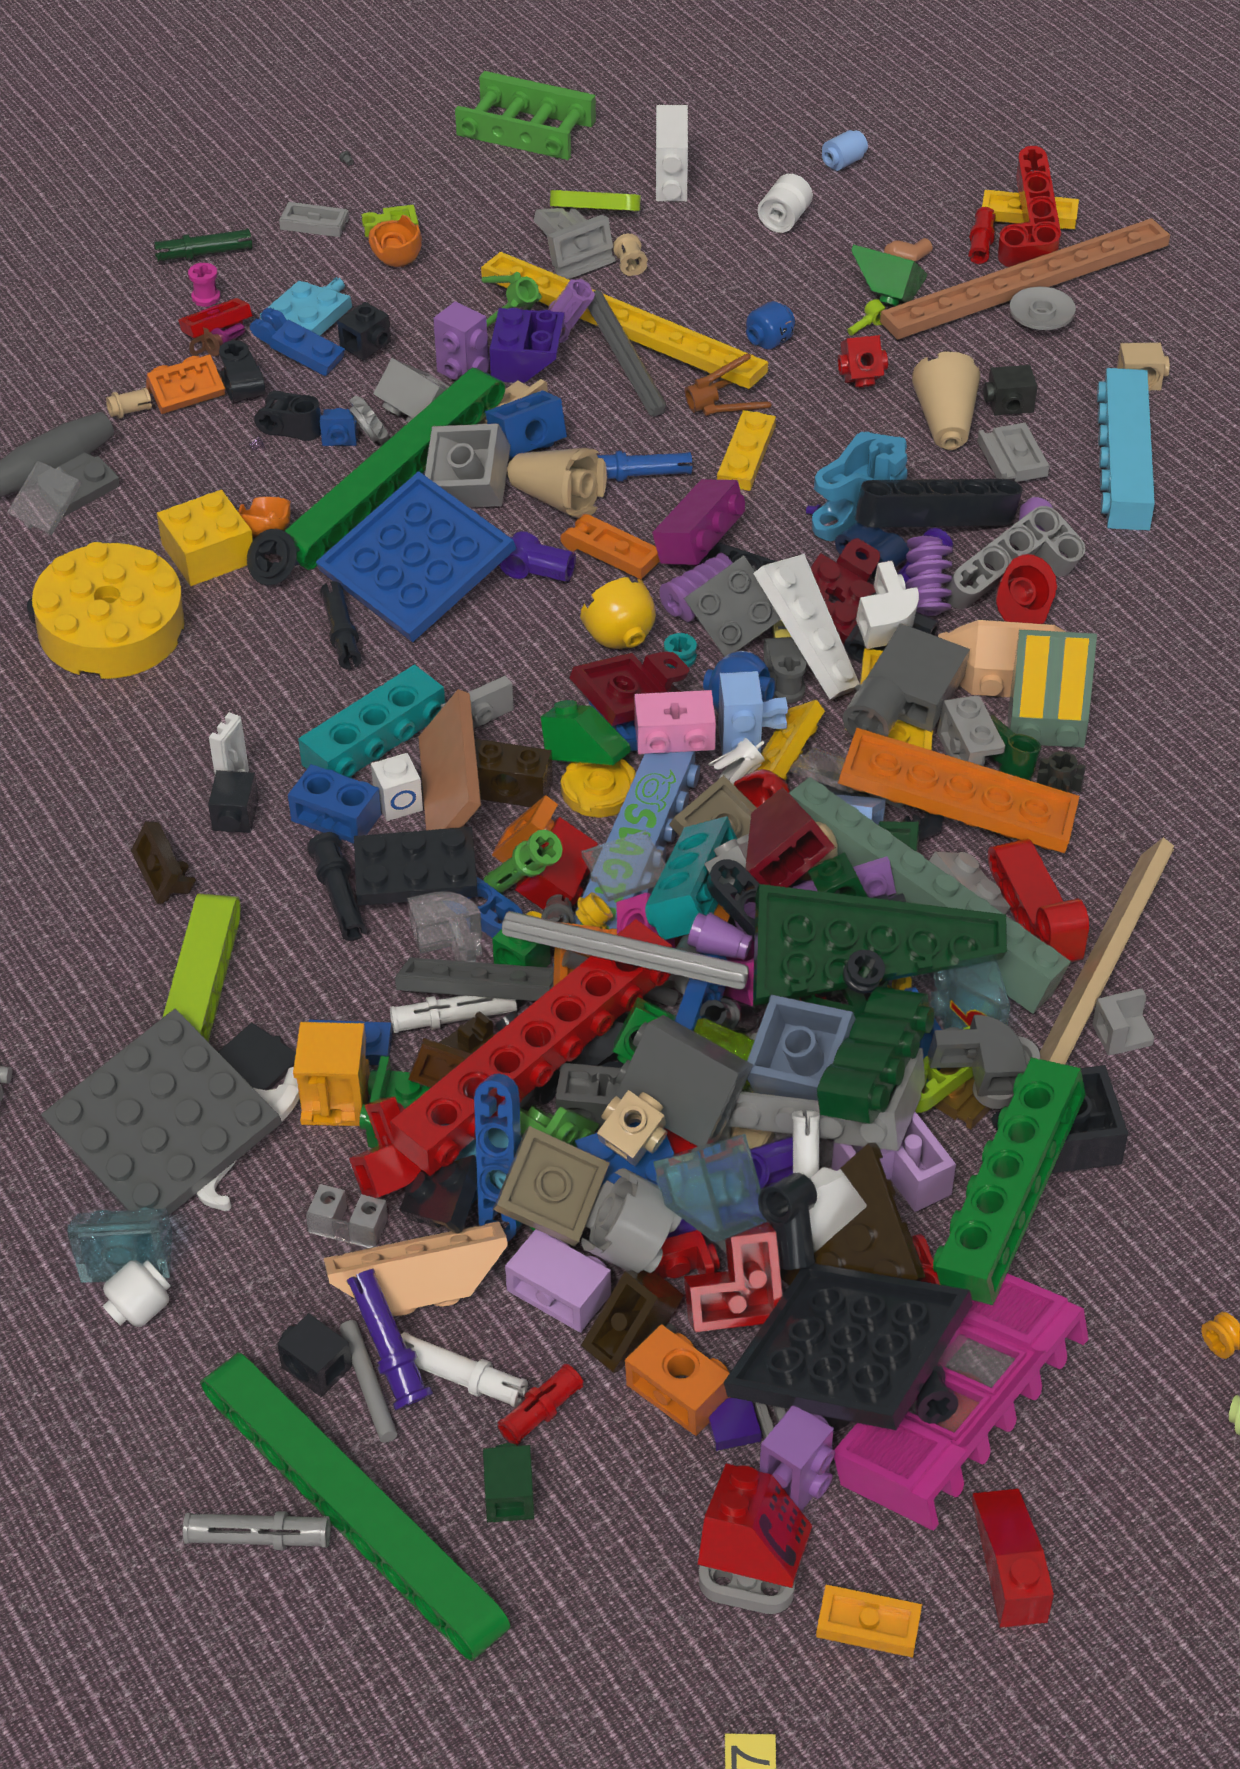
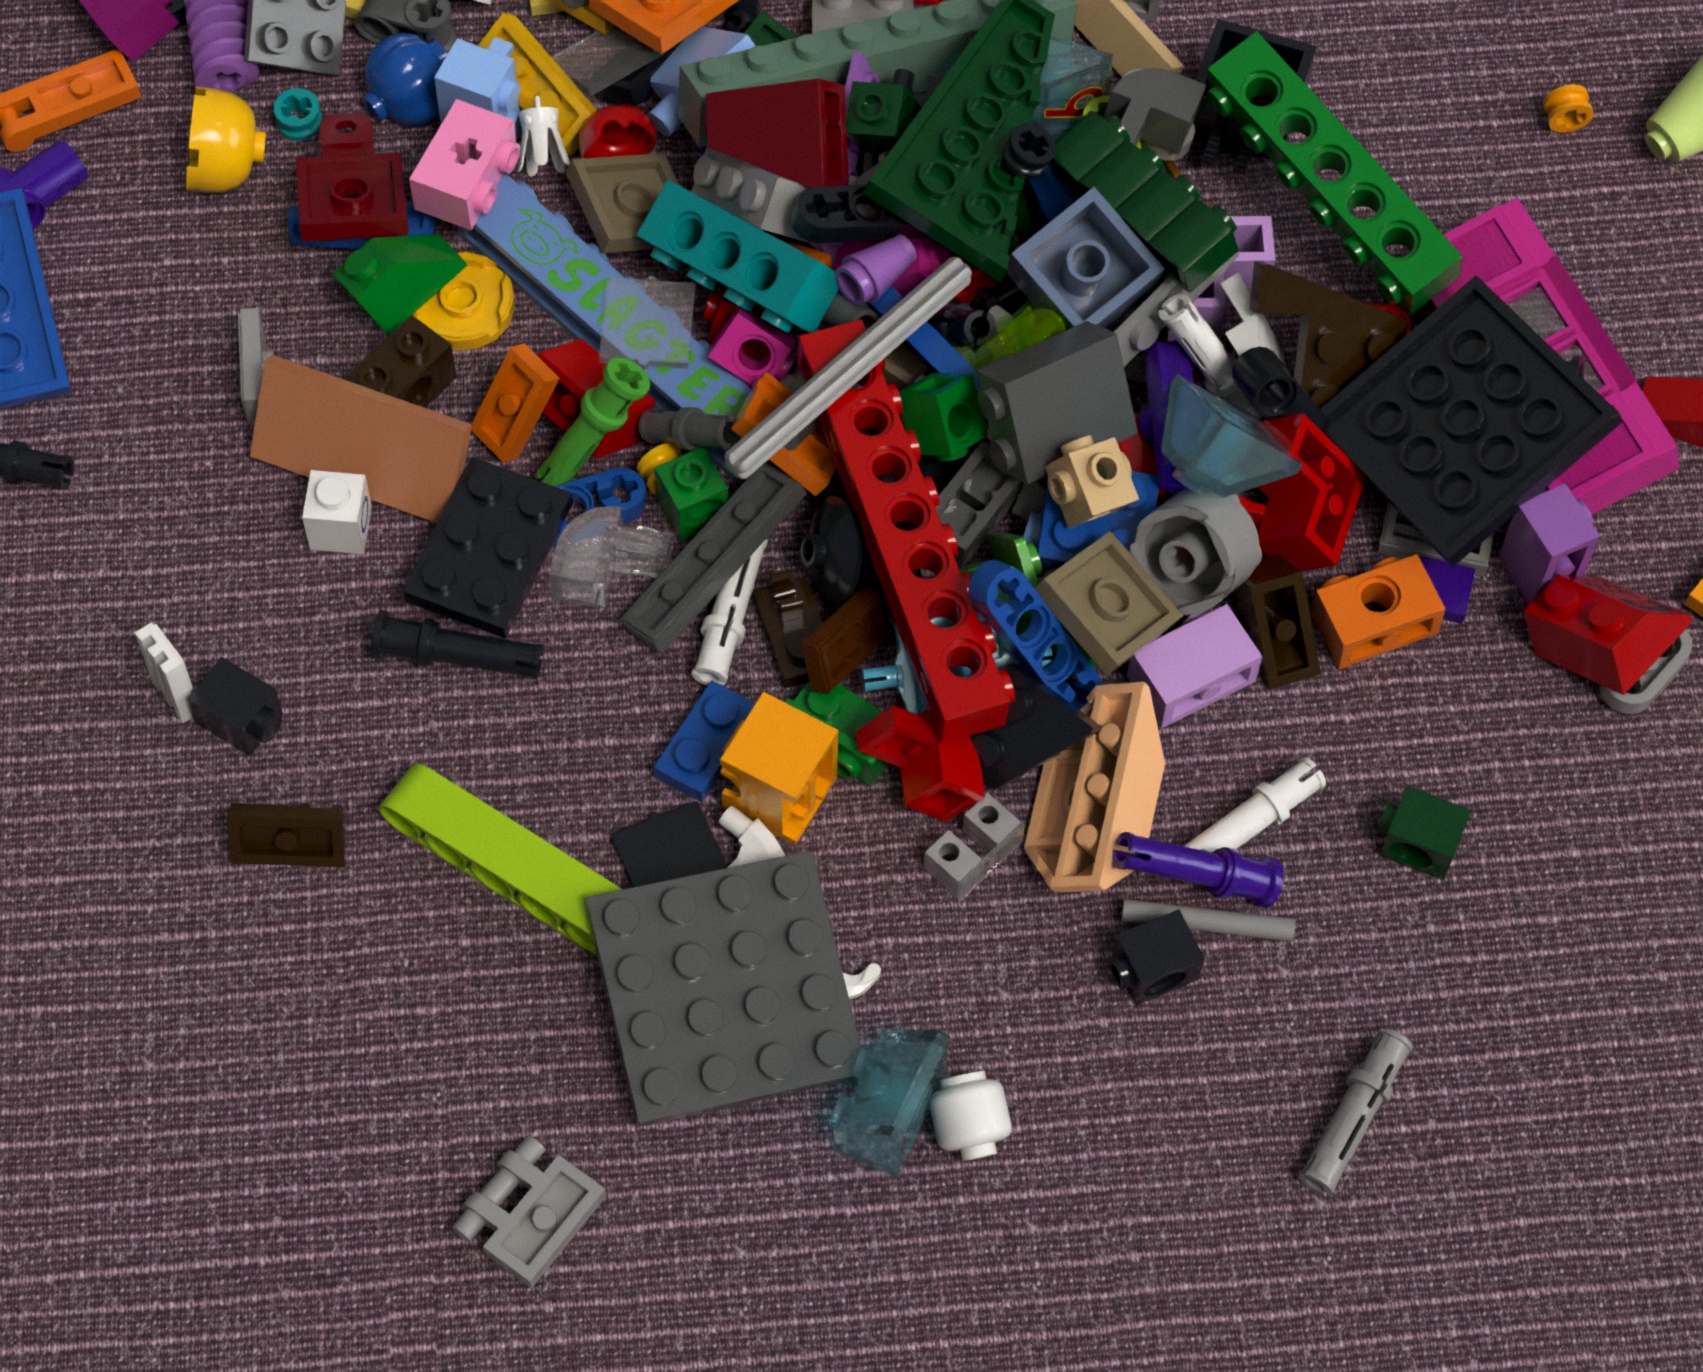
camera: 65 degrees left, 15 degrees up
(334, 803) = (325, 602): blue brick -> none
(356, 1507) = (1364, 999): green beam -> none
(374, 723) = (218, 570): teal brick -> none
(540, 1404) = (1335, 759): red pin -> none
(593, 911) = (711, 386): yellow plate -> none

